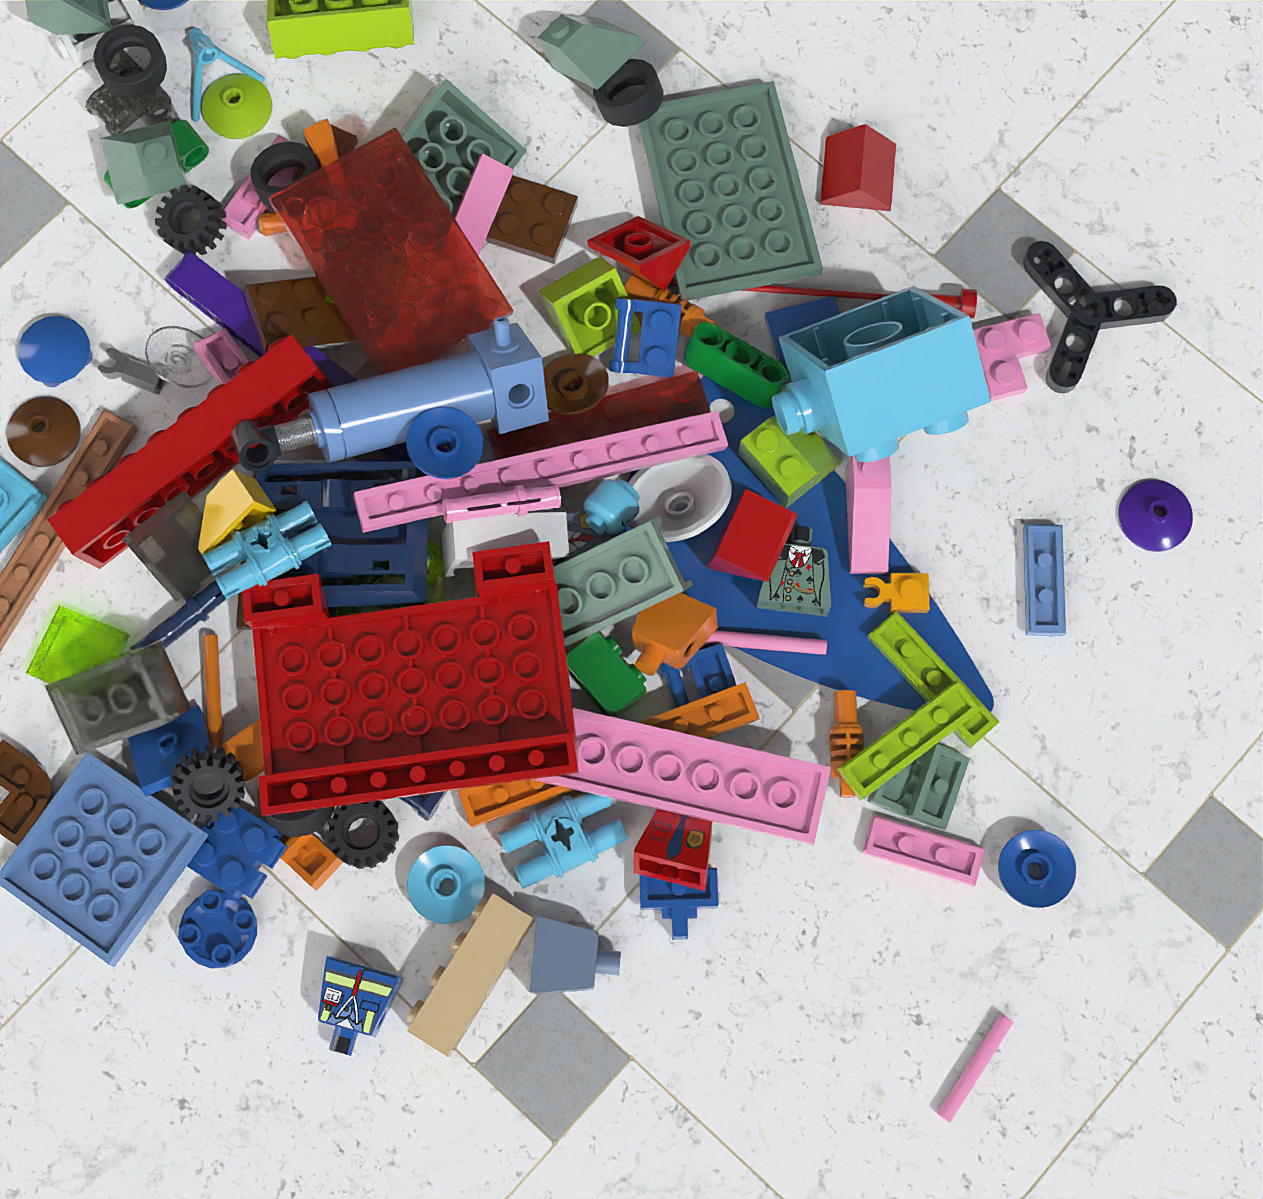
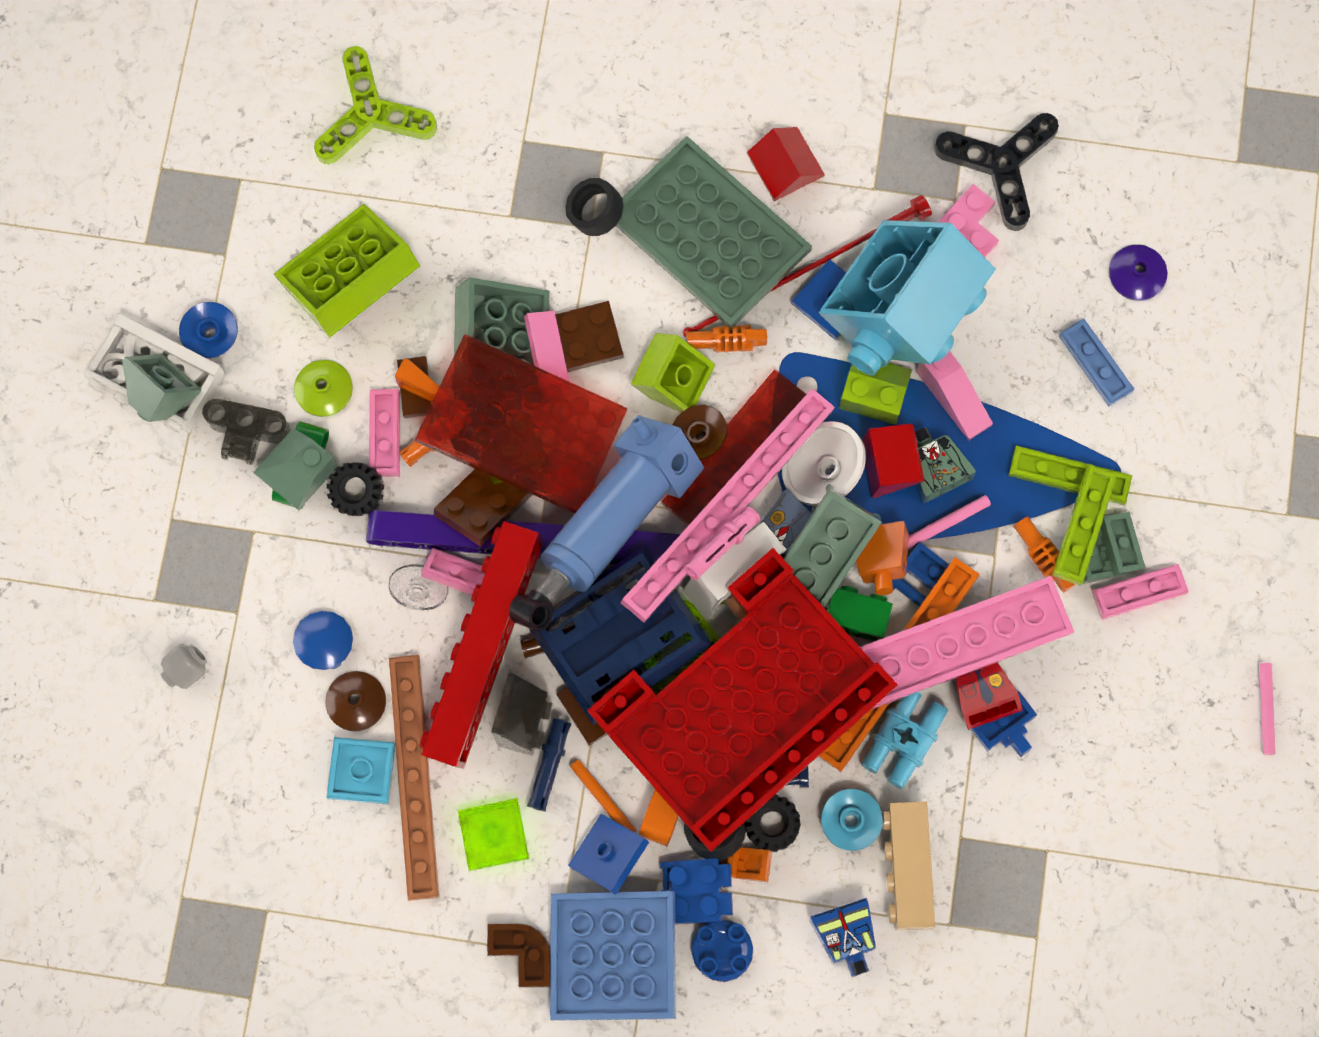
camera: 30 degrees left, 0 degrees up
(118, 697) = (547, 843): clear smoke slope -> none
(119, 39) = (231, 383): black tyre -> none
(132, 372) = (390, 619): flat silver bar -> none
(206, 54) = (276, 364): medium azure plant -> none
(212, 803) = (667, 862): black tyre -> none
(232, 506) = (545, 668): yellow slope -> none
(266, 550) = (588, 676): medium azure pin -> none
(277, 158) = (389, 402): black tyre -> none
(448, 428) = (656, 515): blue dish -> none
(568, 958) = (964, 813): sand blue torso -> none
(588, 48) = (546, 192): sand green slope -> none
(611, 507) = (789, 498): medium azure head -> none
(642, 250) = (683, 310): red slope -> none
(658, 337) = (734, 365): blue plate -> none
(735, 364) = (798, 349): green beam -> none
(904, 591) = (1012, 430): light orange plate -> none
(1055, 865) = (1230, 545): blue dish -> none

